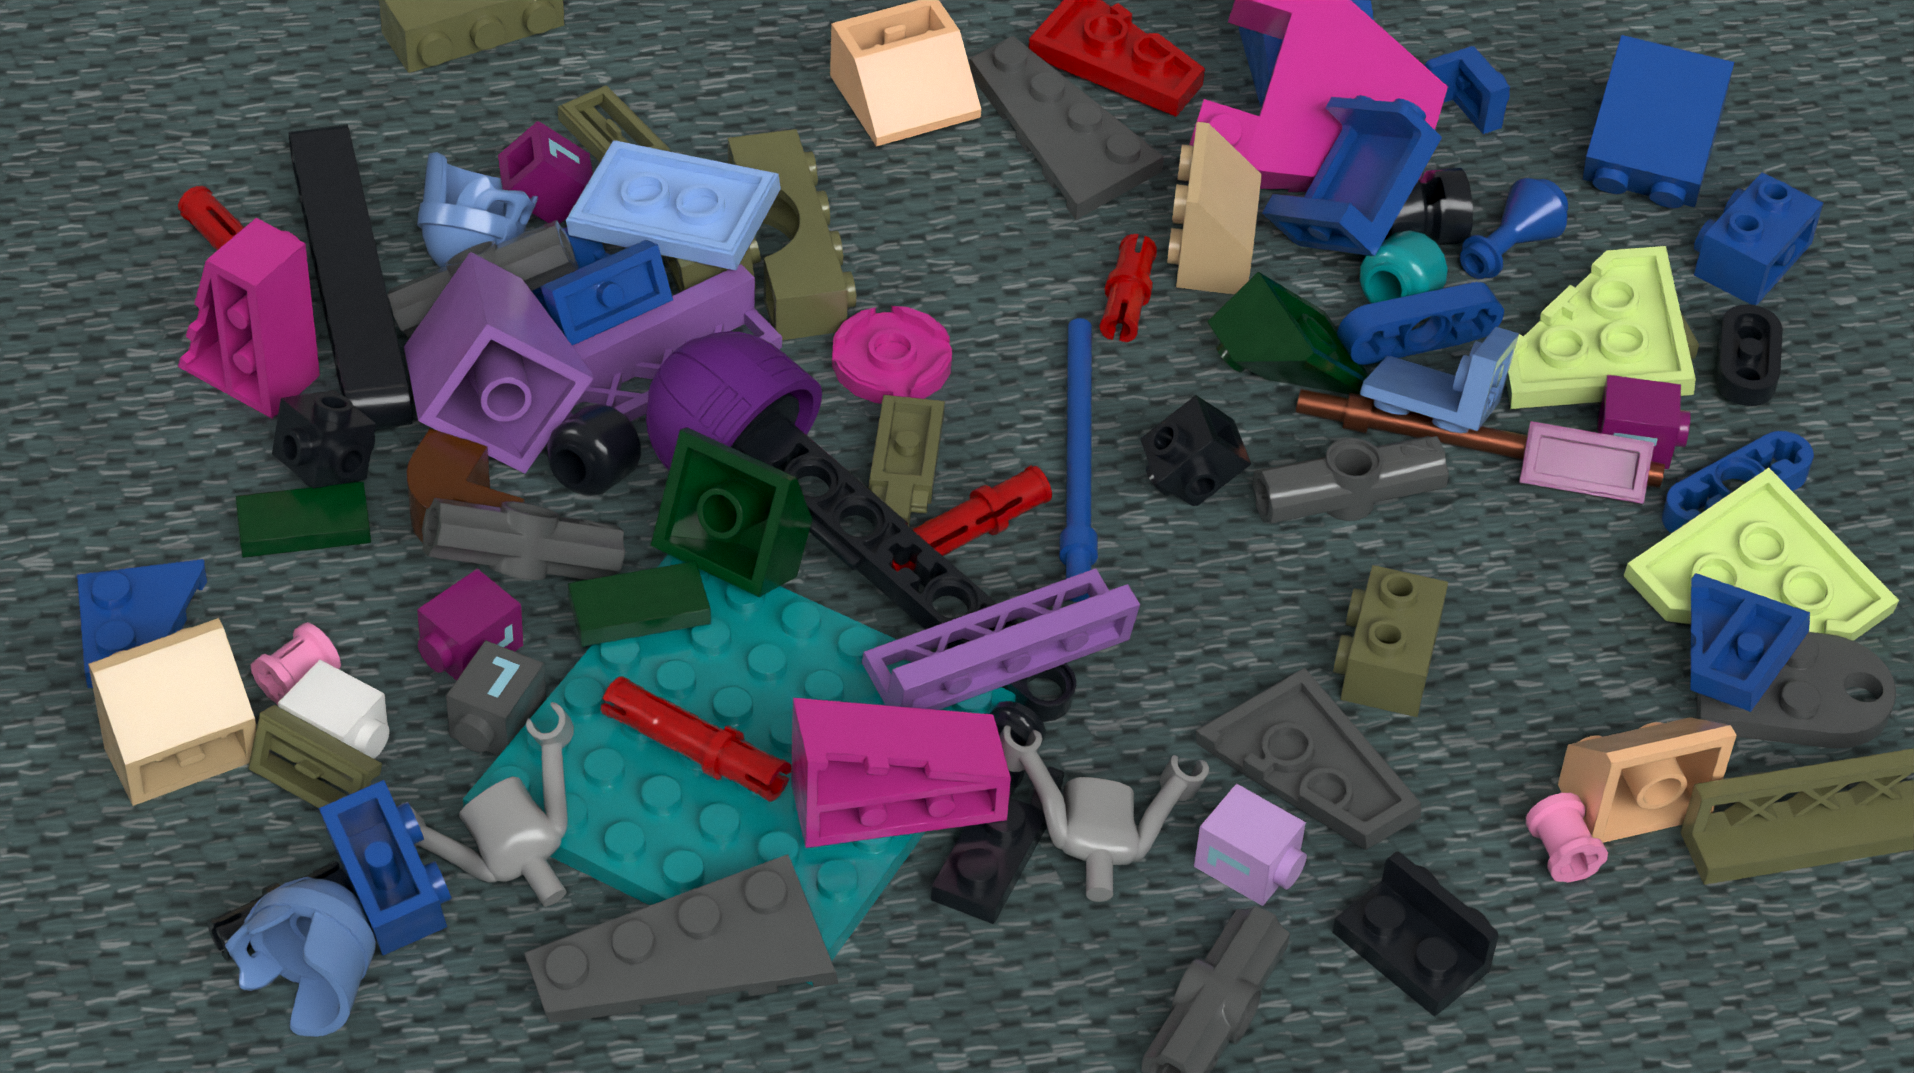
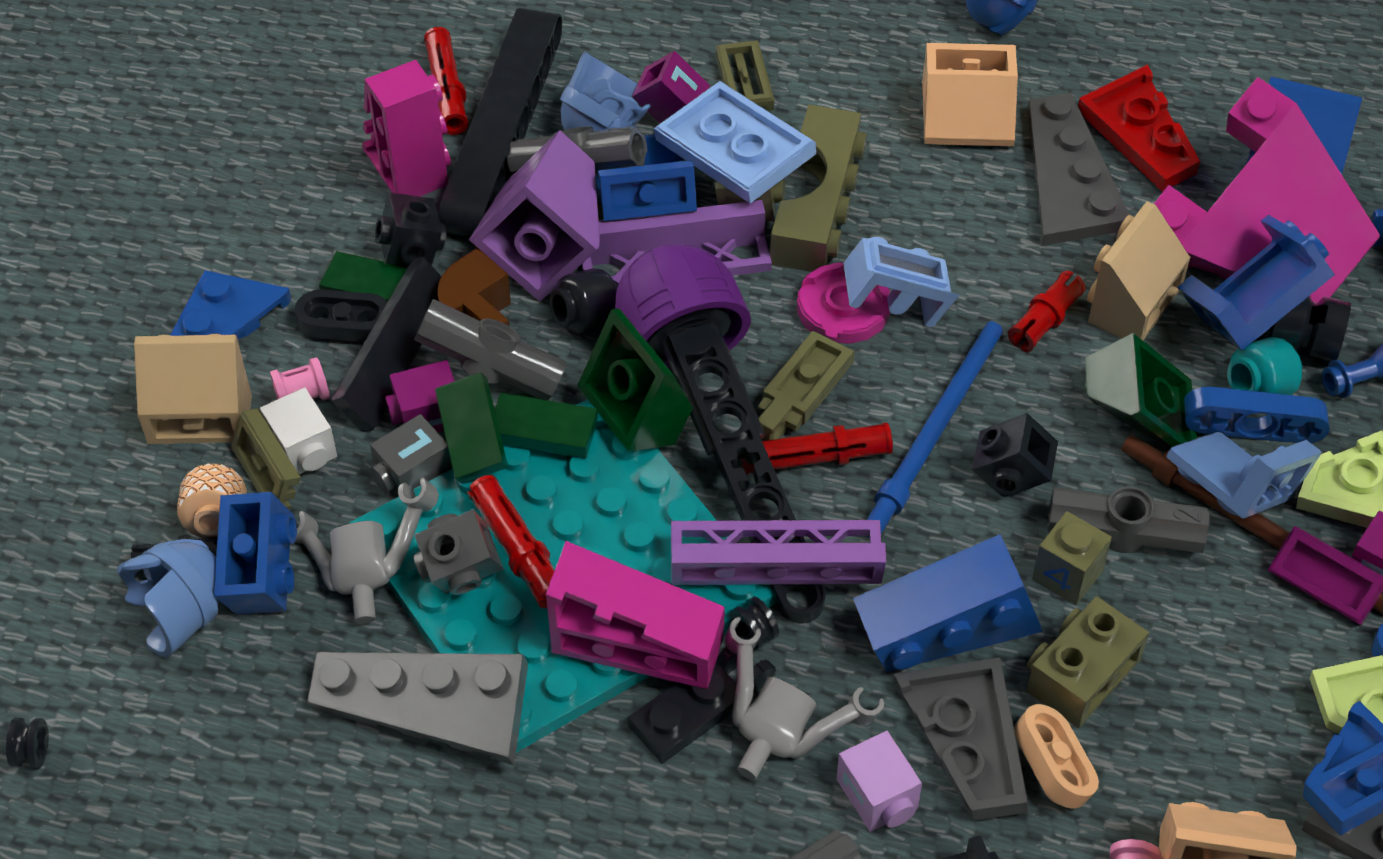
camera: 30 degrees right, 5 degrees up
(280, 832) = (200, 497): none -> light nougat head
(295, 568) = (345, 314): none -> black plate
(384, 580) = (388, 347): none -> black tile
(562, 632) = (471, 428): none -> dark green tile
(642, 772) = (456, 553): none -> dark grey brick
(976, 292) = (905, 271): none -> light blue window
(1221, 634) = (948, 608): none -> blue wedge
(1317, 539) = (1071, 557): none -> olive brick
(1419, 749) = (1056, 756): none -> light nougat plate

